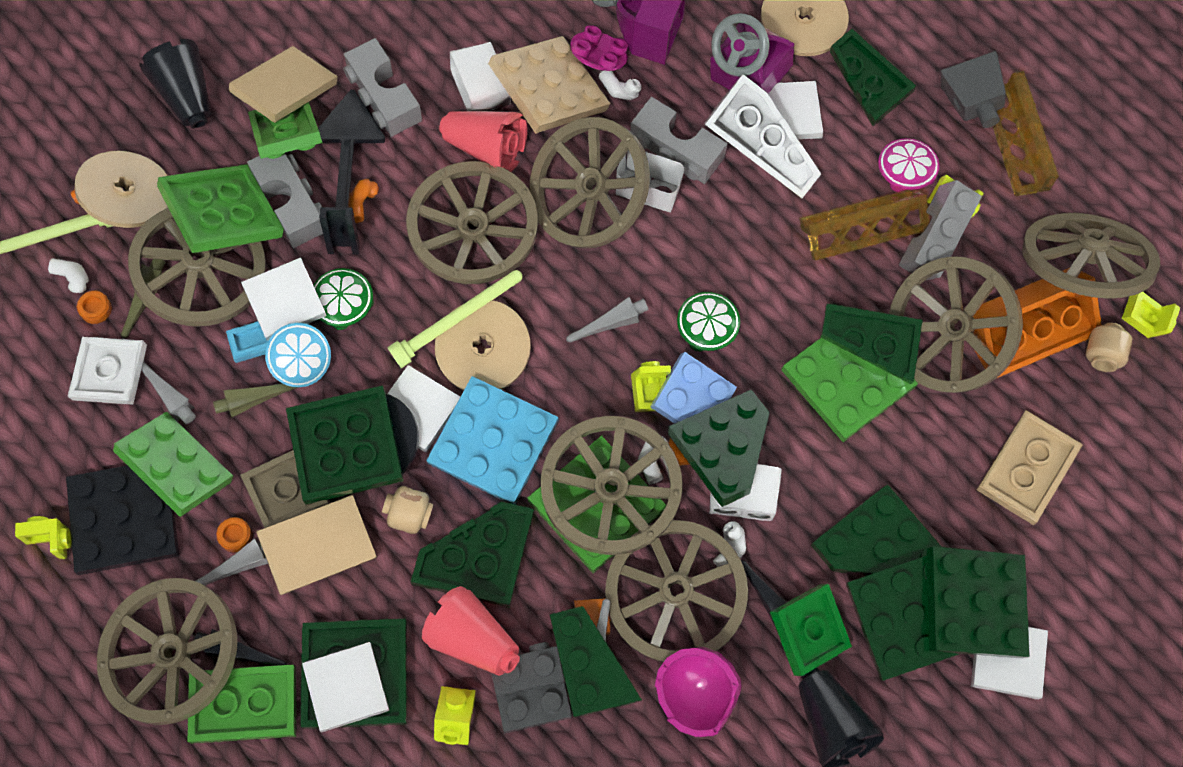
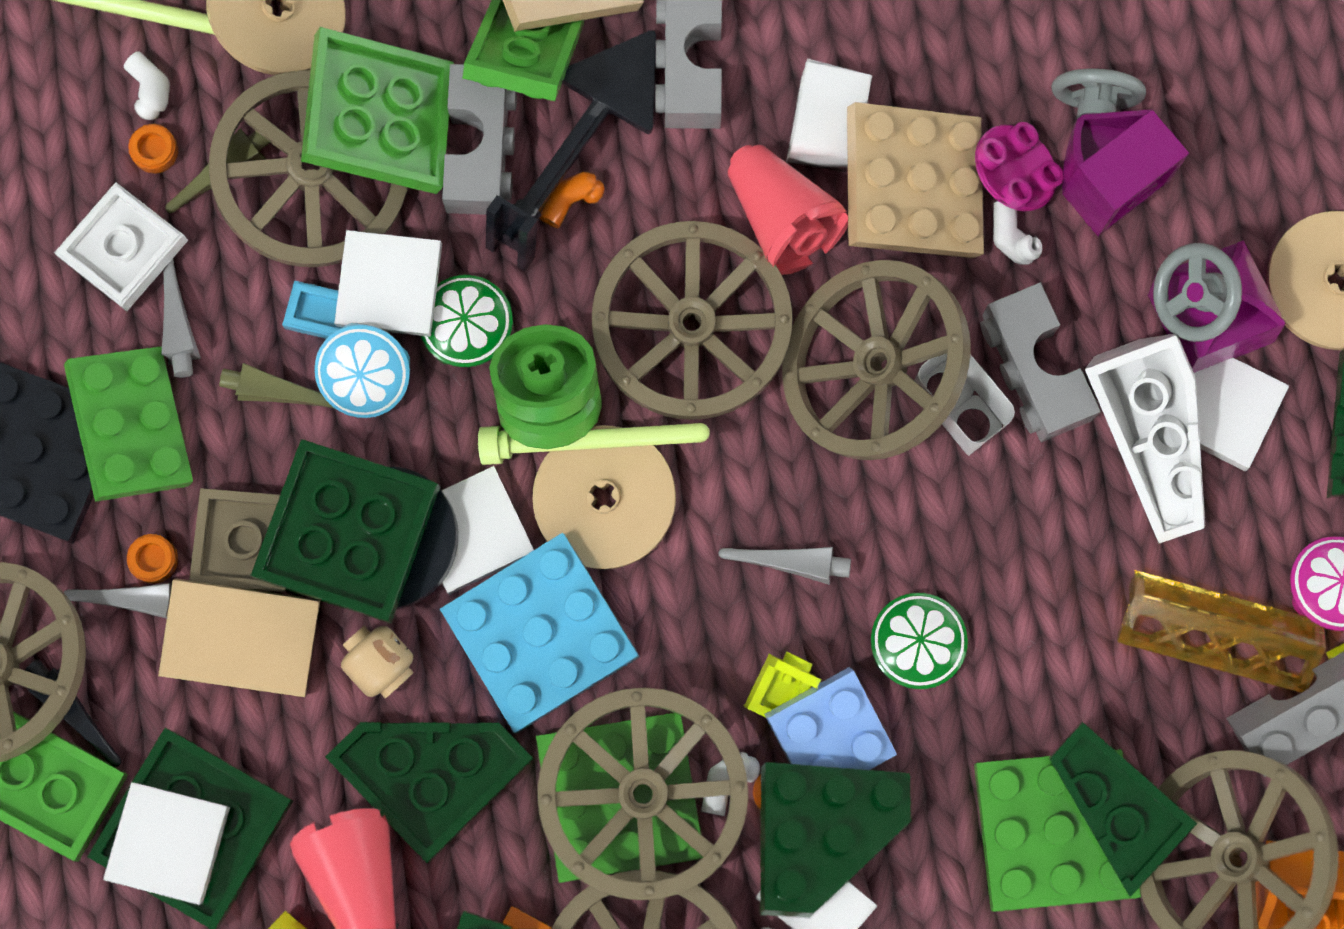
camera: 35 degrees right, 10 degrees up
(412, 299) = (546, 386): none -> bright green wheel

